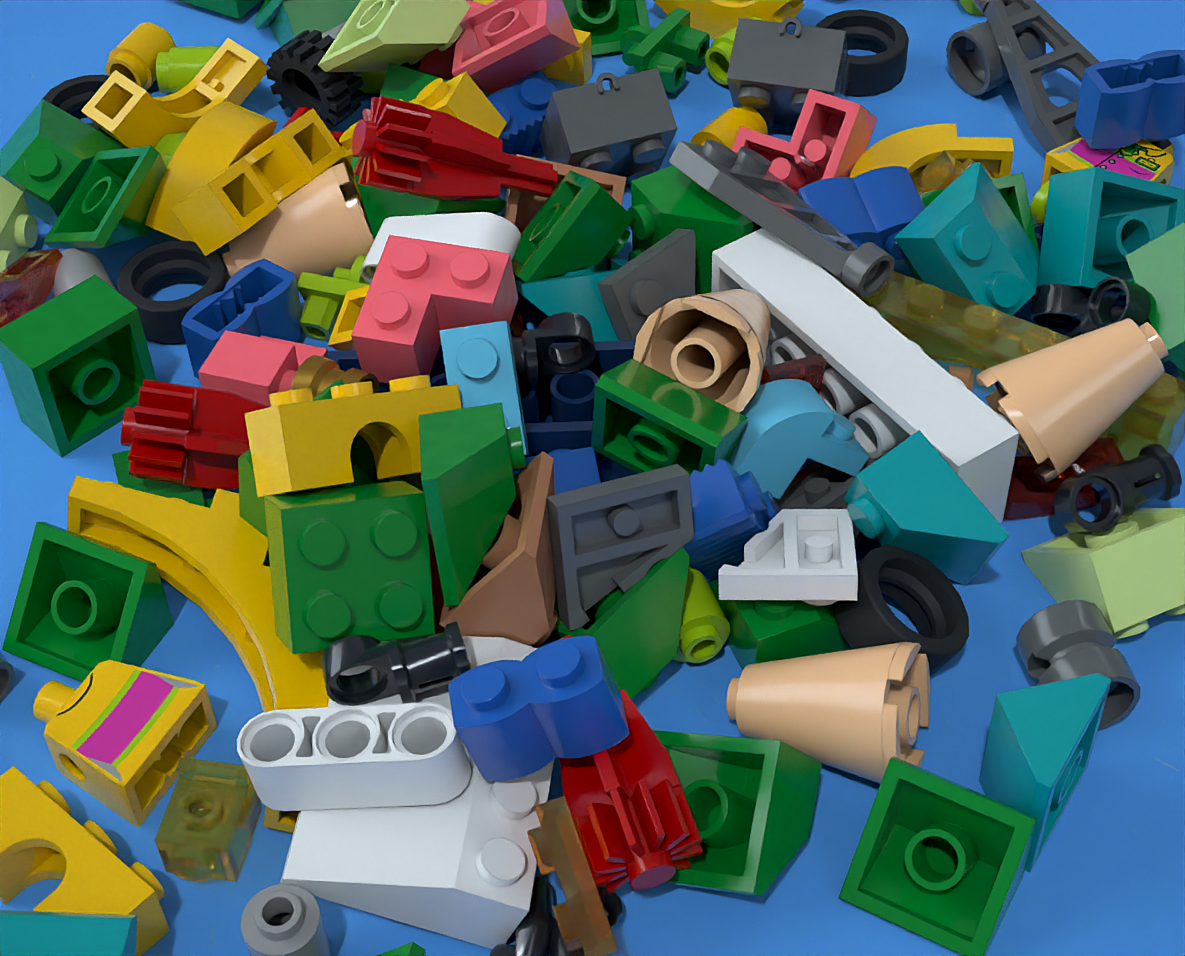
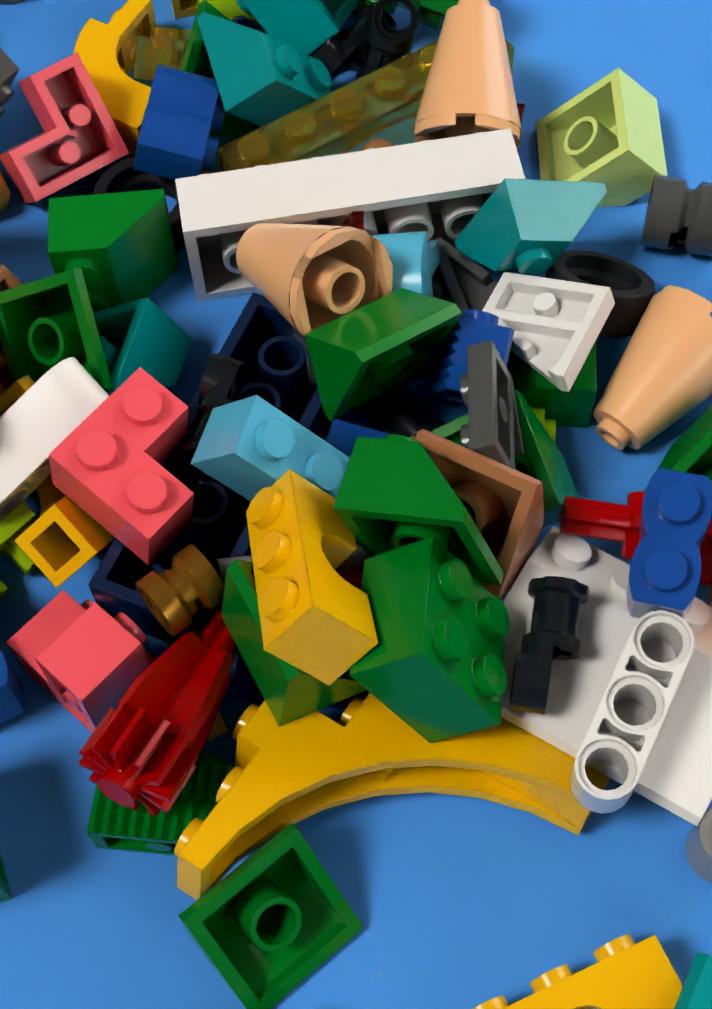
camera: 65 degrees left, 15 degrees up
(125, 733) = (436, 925): yellow torso -> none
(208, 821) = (544, 885): clear yellow brick -> none
(649, 282) = (174, 306): dark grey wing -> none
(752, 190) = (103, 177): dark grey plate -> none
(1117, 489) = (542, 115): black connector -> none

